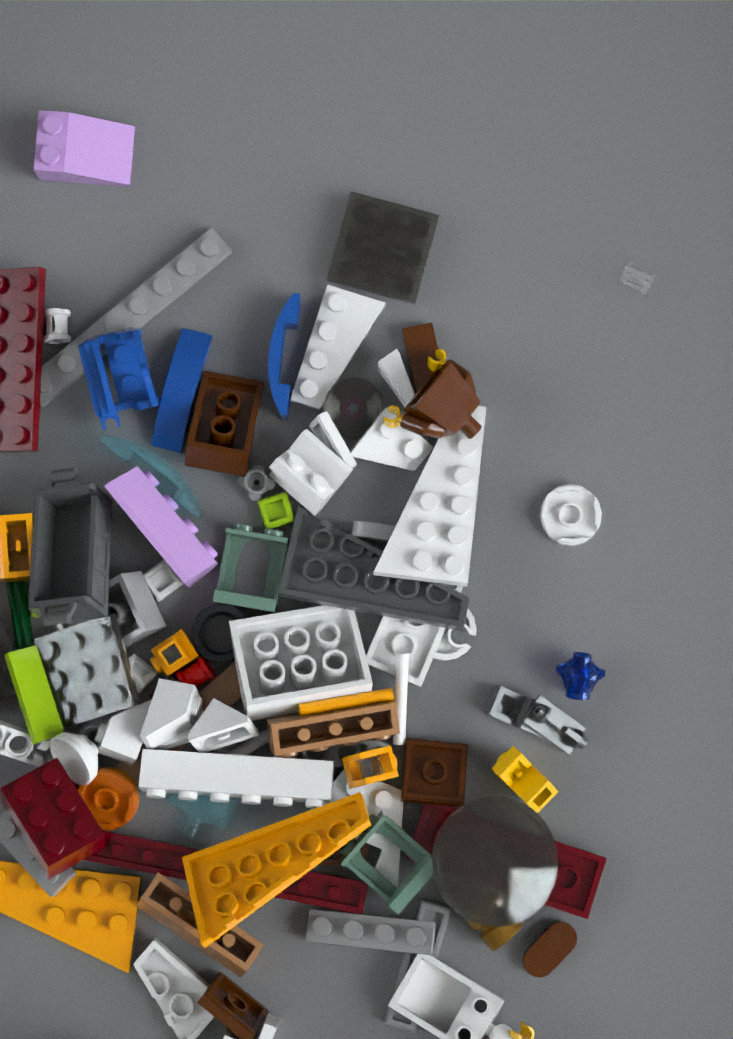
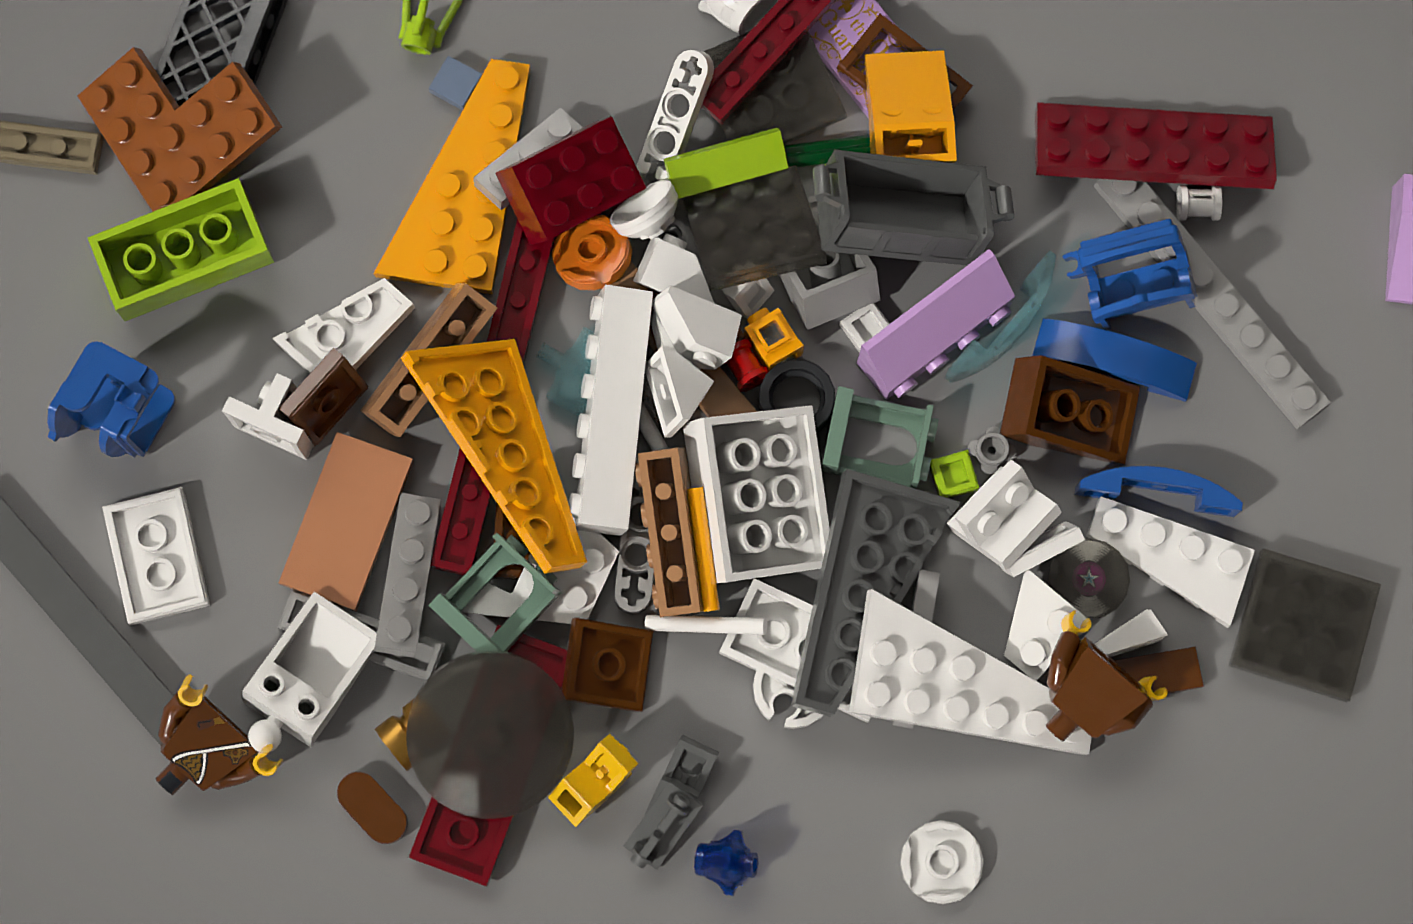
camera: 90 degrees right, 5 degrees down
(329, 983) = (346, 521): none -> nougat tile
(370, 766) = (618, 579): light orange window -> none

